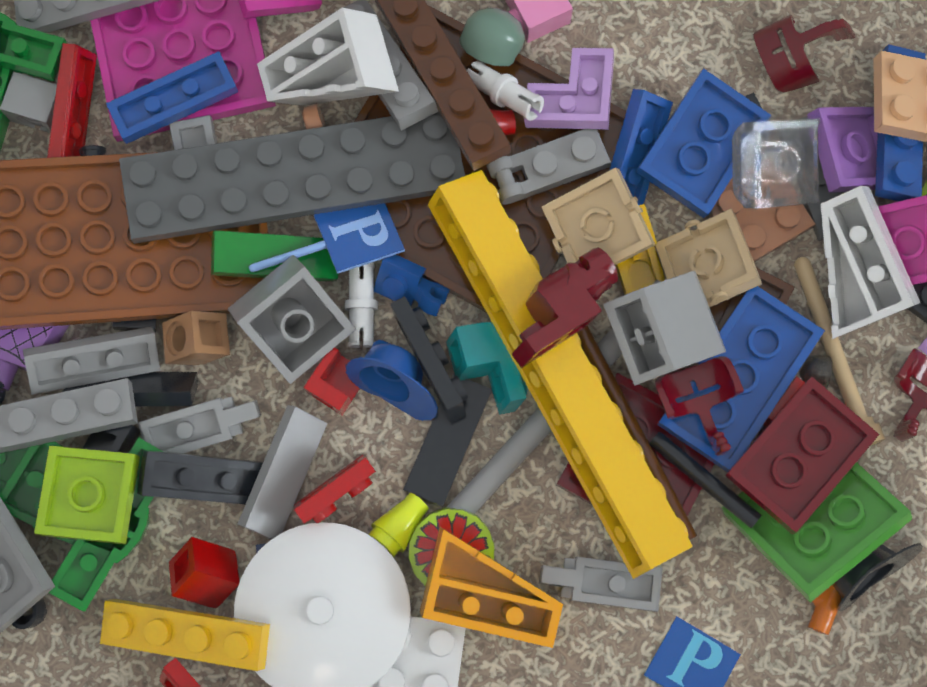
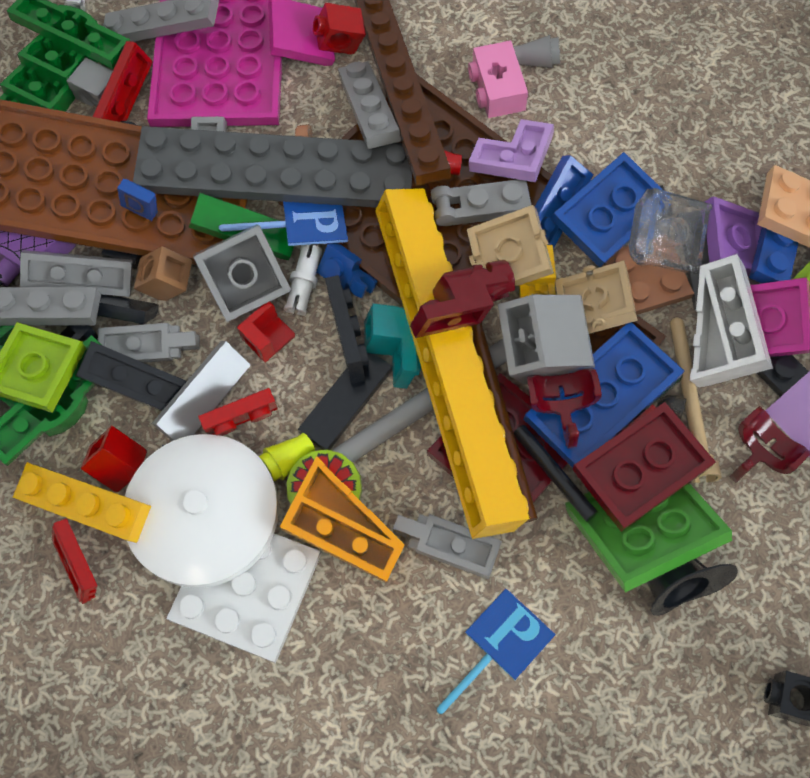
camera: 15 degrees right, 10 degrees down
(143, 257) = (137, 199): none -> blue tile
(172, 97) = (198, 97): blue plate -> none
(330, 62) = (325, 89): white wedge -> none
(395, 377) = (313, 337): blue piece -> none
(492, 36) = (460, 99): sand green hair -> none
(506, 91) = (459, 138): white pin -> none
(778, 65) = (705, 179): dark red helmet -> none
(825, 610) = (640, 602): orange arm -> none

